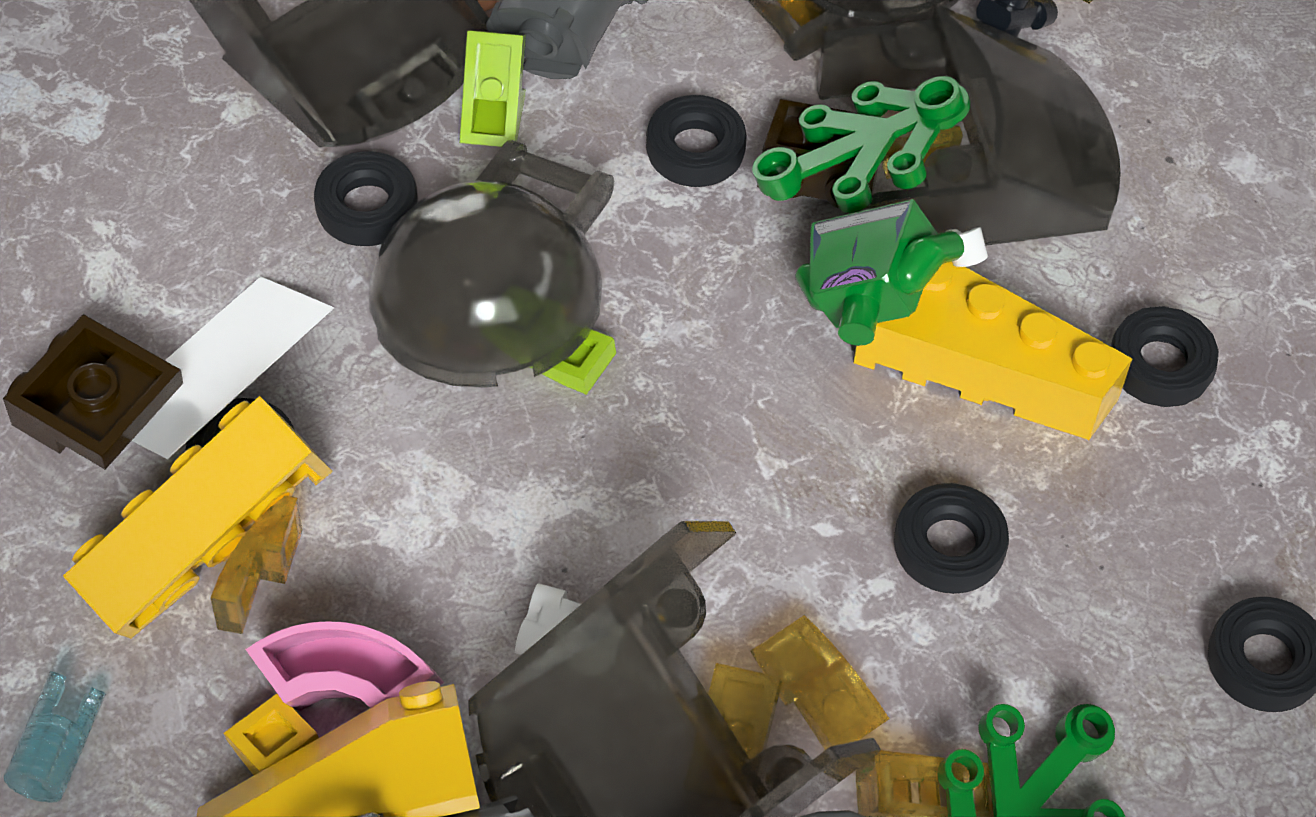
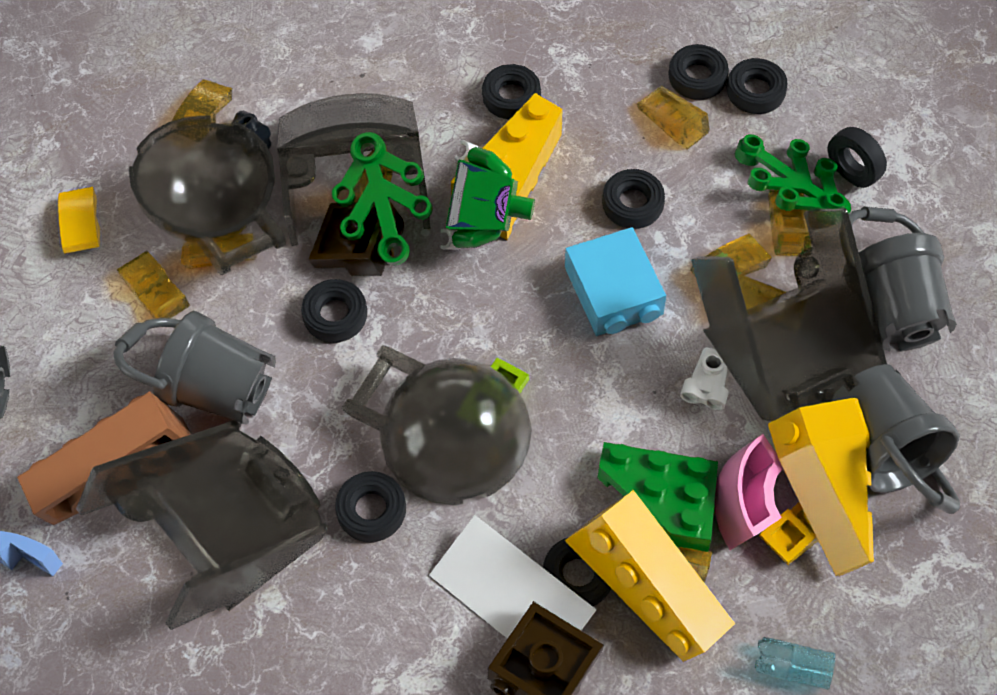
camera: 85 degrees left, 5 degrees up
(355, 552) = (671, 486): none -> green plate
(492, 88) = (289, 423): lime slope -> none
(775, 490) = (615, 282): none -> medium azure brick
(1127, 637) = (687, 131): none -> clear yellow slope
(1240, 792) = (757, 69): none -> black tyre

